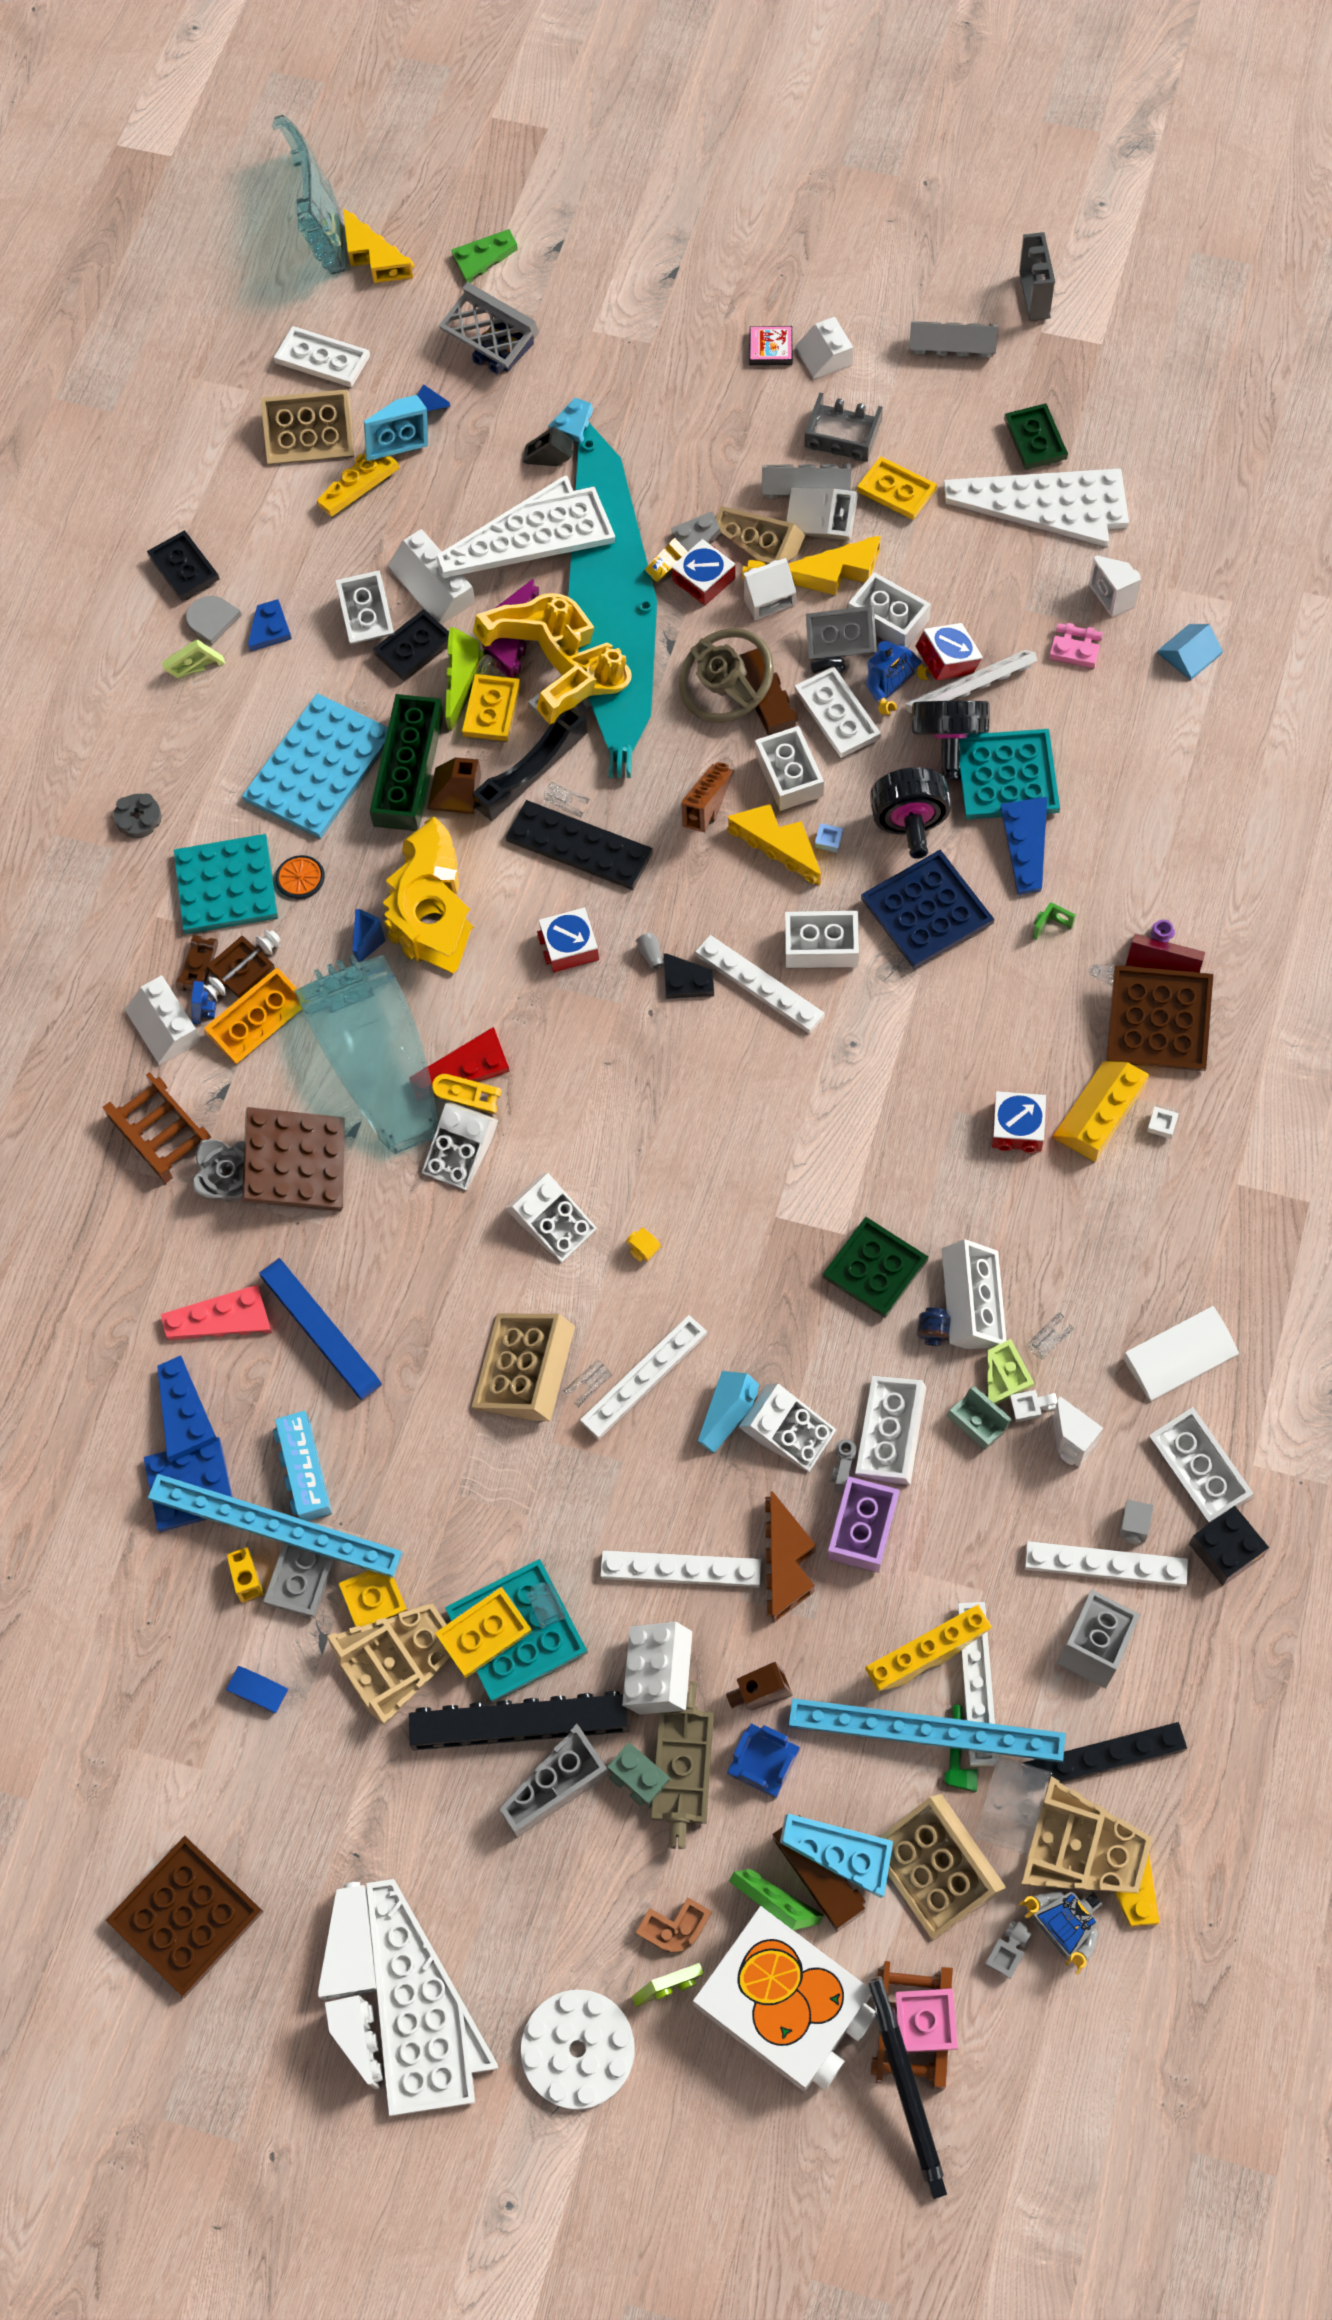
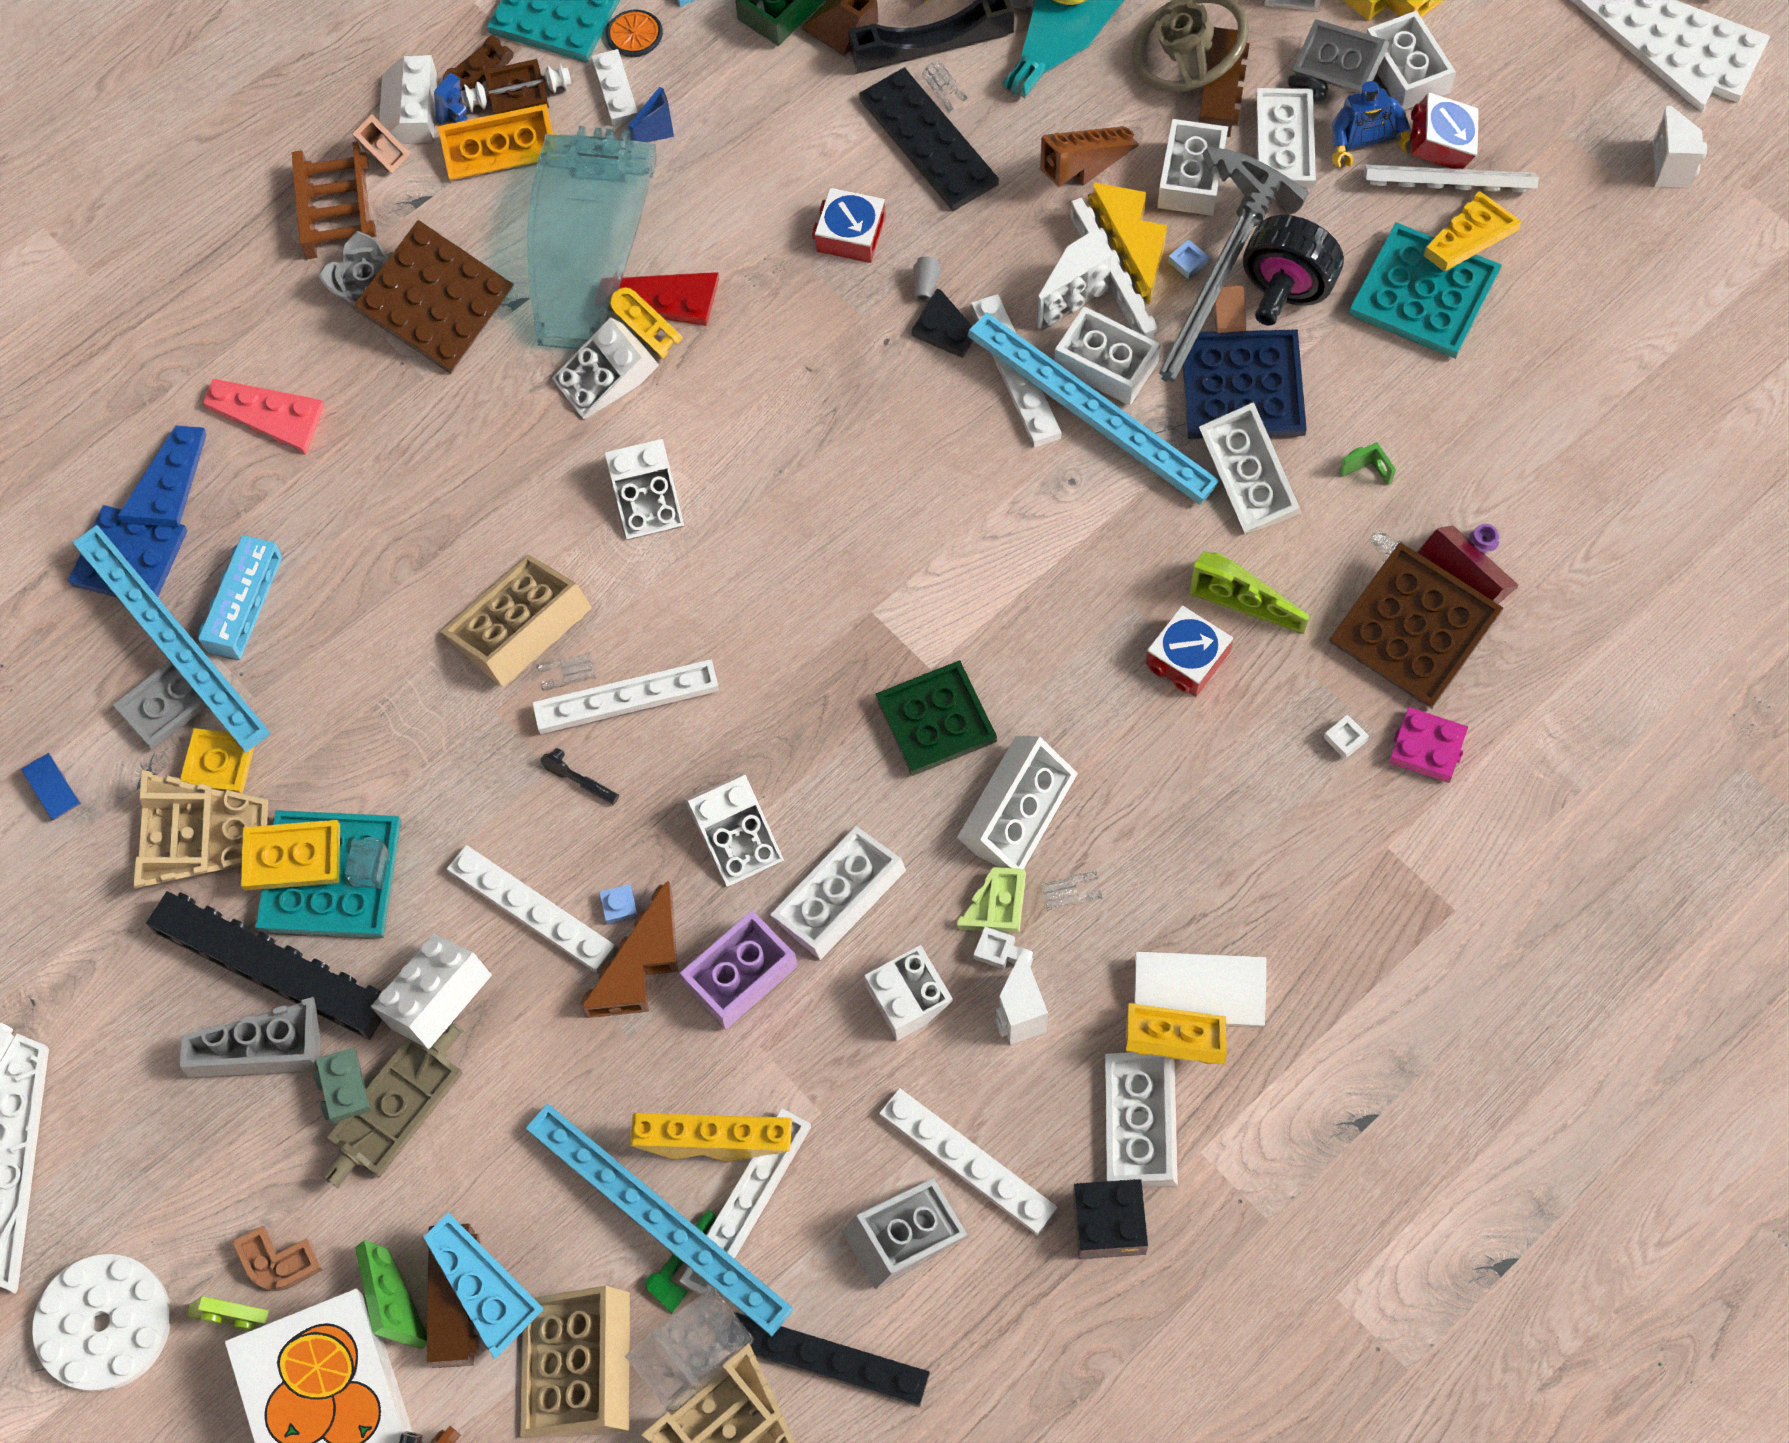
camera: 30 degrees right, 0 degrees up
(168, 1064) = (380, 143): none -> slope
(244, 1575) = (114, 669): yellow leg -> none
(315, 926) = (615, 87): none -> white plate
(320, 1329) = (348, 475): blue beam -> none
(424, 887) = (740, 100): yellow animal -> none
(626, 1455) = (554, 764): none -> black piece
(643, 1245) = (714, 565): yellow plate -> none
(729, 1405) = (684, 774): medium azure slope -> none
(741, 1529) = (618, 904): none -> light blue plate
(763, 1759) = (477, 1147): blue panel -> none
(765, 887) = (1077, 278): none -> white slope
(771, 1687) = (523, 1073): reddish brown torso -> none
(779, 874) = (1120, 282): none -> white plate
(836, 982) = (1093, 408): none -> medium azure plate
(841, 1473) = (762, 900): light grey plate -> none
(850, 759) = (1260, 186): none -> dark grey piece
(882, 858) = (1230, 310): none -> nougat slope
(933, 1326) = (953, 810): dark blue head -> none
(950, 723) = (1390, 201): black wheel -> none
(975, 967) = (1250, 469): none -> white slope
(979, 1418) = (936, 930): sand green bracket -> none
(990, 1471) = (908, 992): none -> white slope
(1014, 715) = (1471, 232): none -> yellow wing
(1017, 1059) = (1233, 587): none -> lime wedge
(1025, 837) = (1400, 360): blue wing -> none
(1075, 651) = (1590, 202): bright pink plate -> none
(1101, 1108) = (1290, 687): yellow slope -> none
(1135, 1521) = (1027, 1135): light grey brick -> none
(1190, 1393) = (1176, 1034): none -> yellow plate
(1192, 649) = (1721, 263): slope -> none
(1219, 1097) = (1428, 745): none -> dark pink plate

